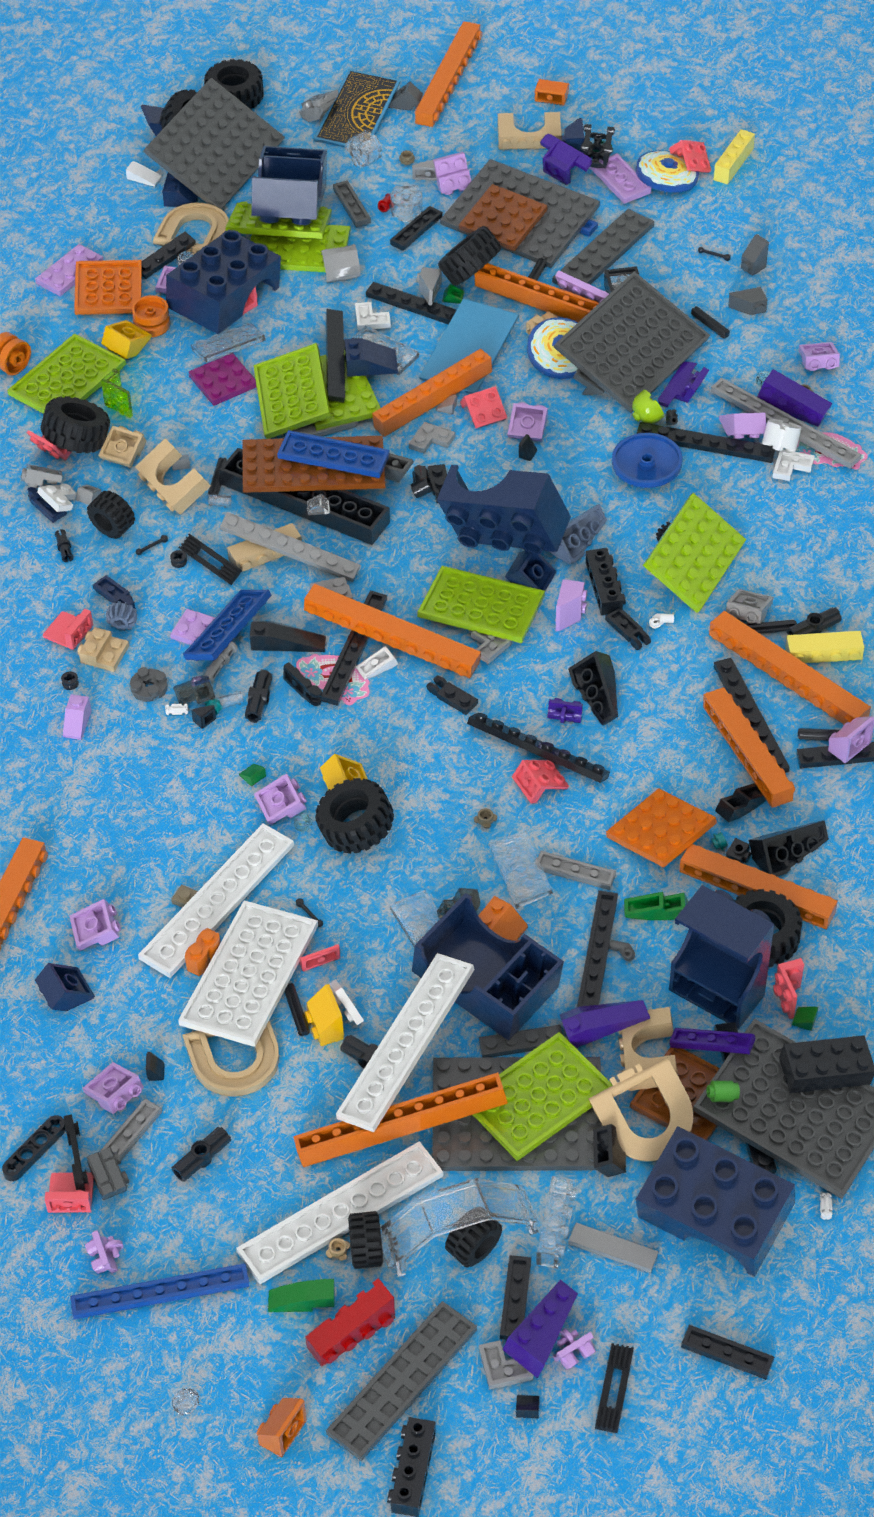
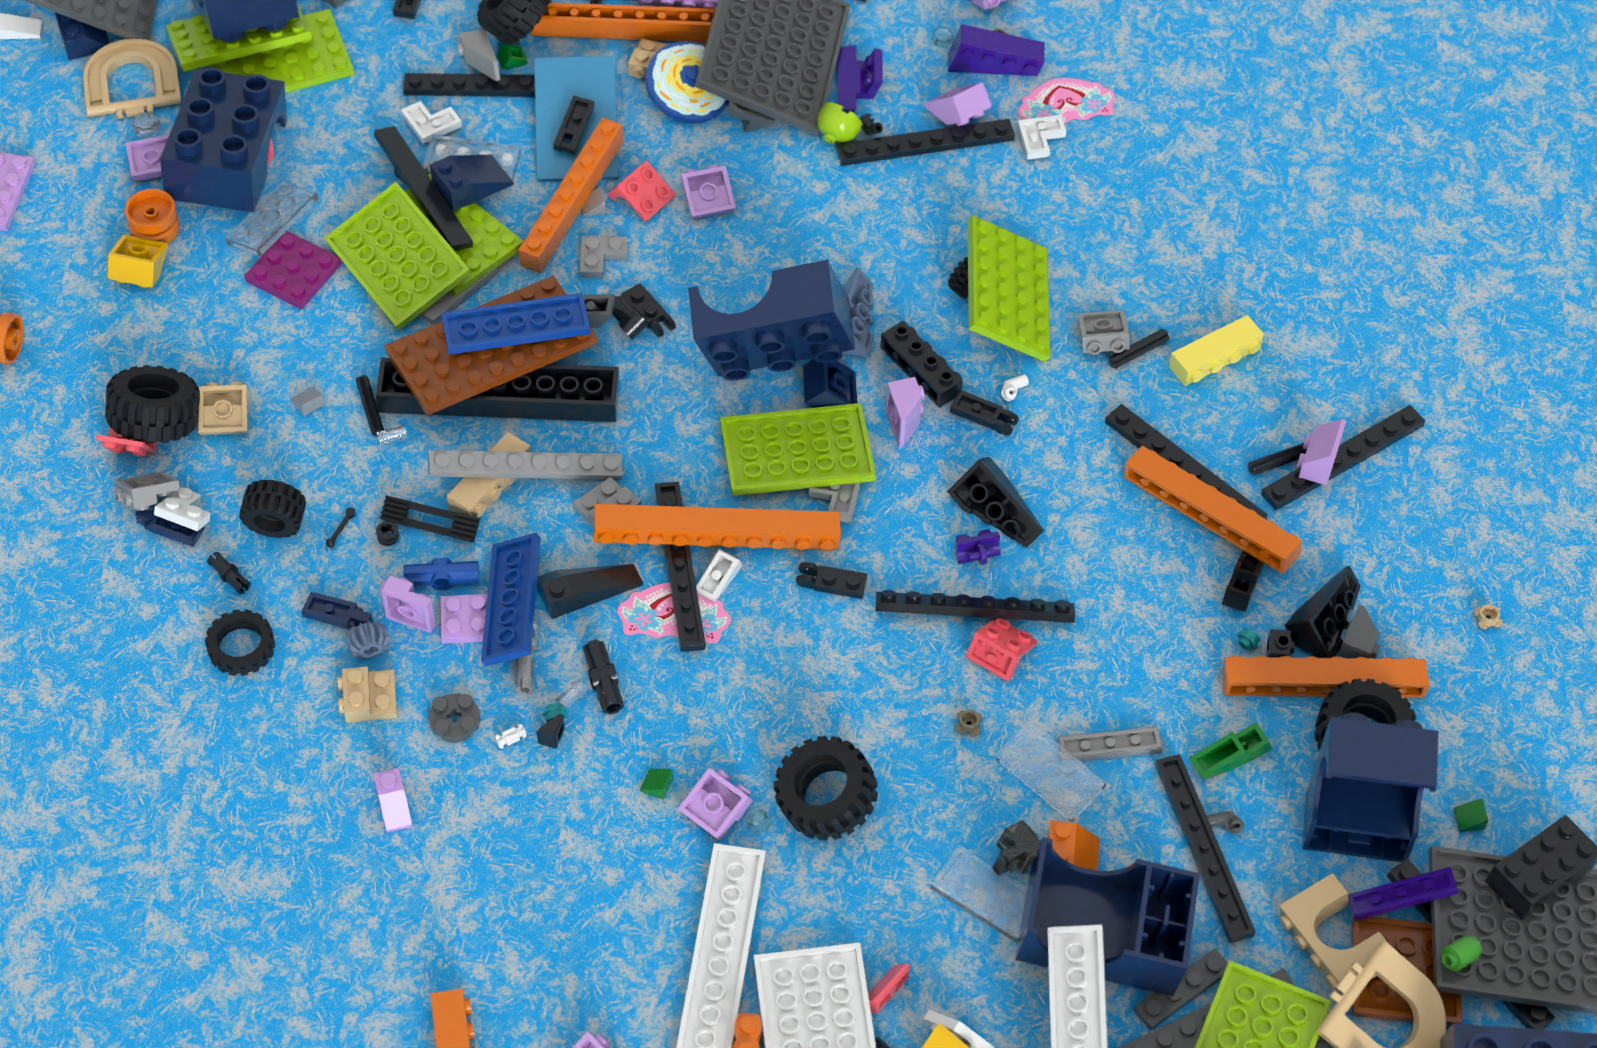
camera: 30 degrees left, 5 degrees up
(44, 602) = (246, 663): none -> black tyre
(69, 371) = (87, 339): lime plate -> none
(69, 629) = (306, 684): coral bracket -> none
(69, 676) = (346, 759): black bush -> none
(87, 494) = (215, 490): light grey slope -> none
(107, 286) = (68, 197): orange plate -> none
(116, 396) = (175, 344): clear neon green bracket -> none
(158, 603) = (406, 606): none -> lavender plate
(166, 254) = (116, 127): black plate -> none
(179, 495) = (338, 450): tan arch -> none
(183, 895) = (675, 981): dark tan plate -> none
(195, 595) = (442, 573): none -> blue piece
(197, 689) = (526, 698): clear smoke brick -> none
(300, 903) = (817, 928): black hinge -> none
(302, 685) = (647, 640): black hinge -> none
(318, 505) = (531, 398): clear slope -> none
(339, 768) = (771, 739): yellow slope -> none
(341, 263) = (354, 62): light grey slope -> none
(463, 348) = (574, 124): none -> black plate
(527, 448) = (726, 226): black slope -> none
(598, 1021) = (1260, 927): dark purple wedge -> none
(647, 460) = (878, 190): blue dish -> none
(661, 827) = (1178, 650): orange plate -> none
(781, 435) = (1014, 103): white brick -> none
(787, 669) = (1195, 394): orange brick -> none
(787, 981) = (1445, 800): coral bracket -> none
(801, 869) = (1360, 637): none -> dark grey slope
(808, 435) = (1002, 84): light grey plate -> none
(816, 622) = (1188, 325): black piece -> none

